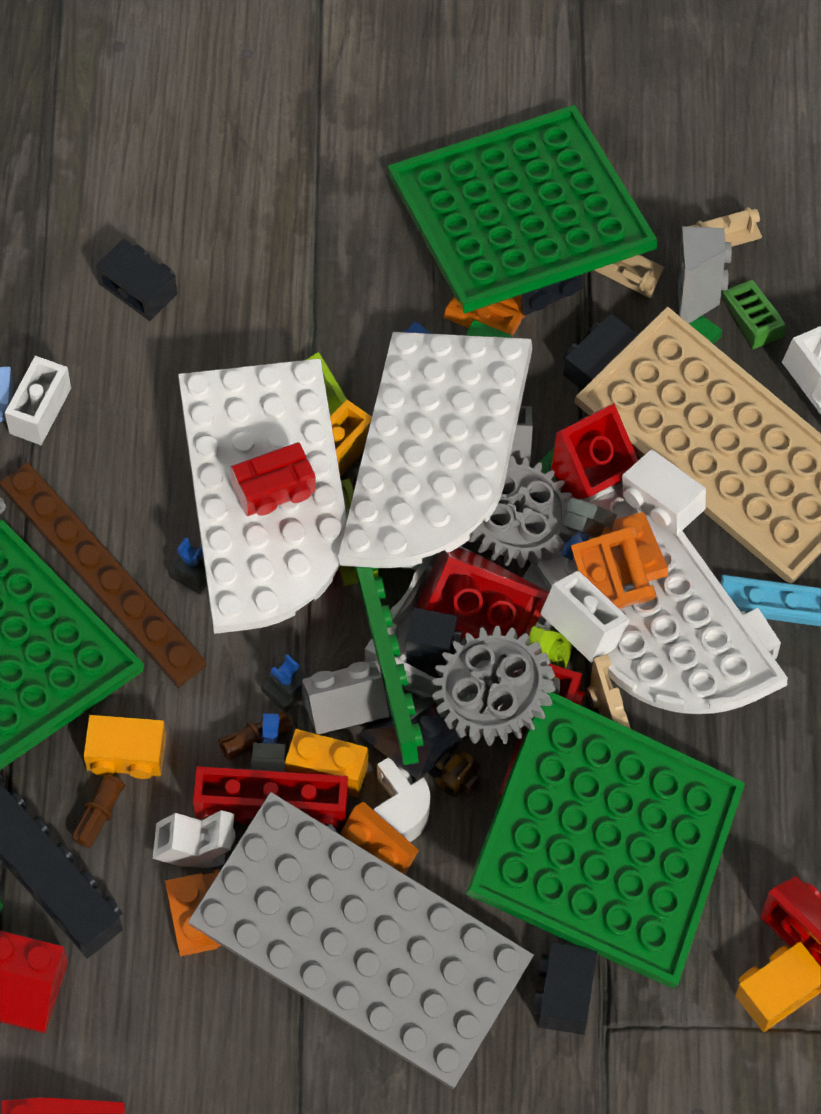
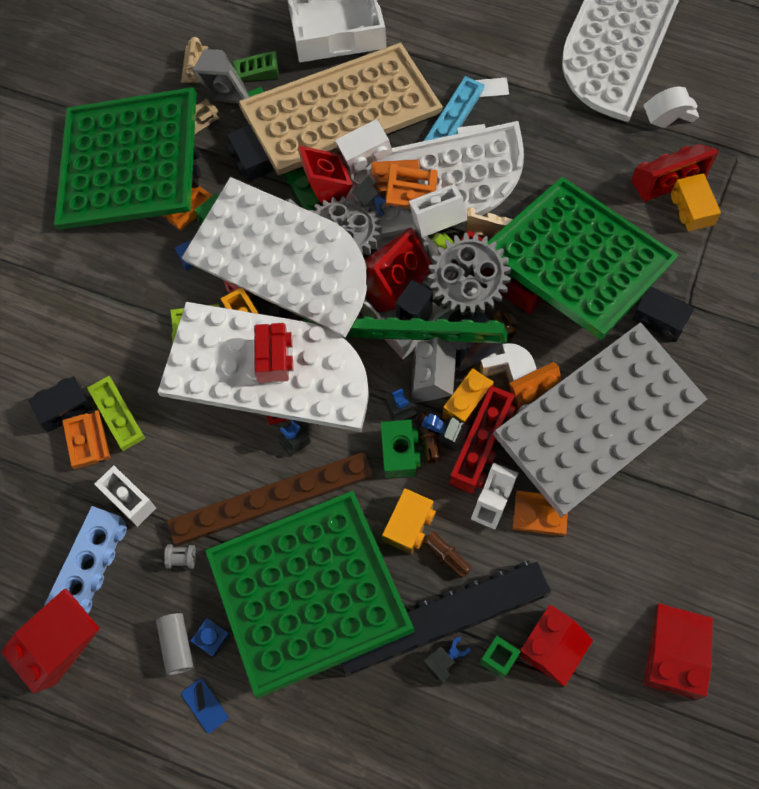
camera: 65 degrees left, 5 degrees up
(101, 328) = (86, 439): none -> orange plate
(149, 347) = (116, 413): none -> lime plate
(232, 683) = (399, 464): none -> green brick

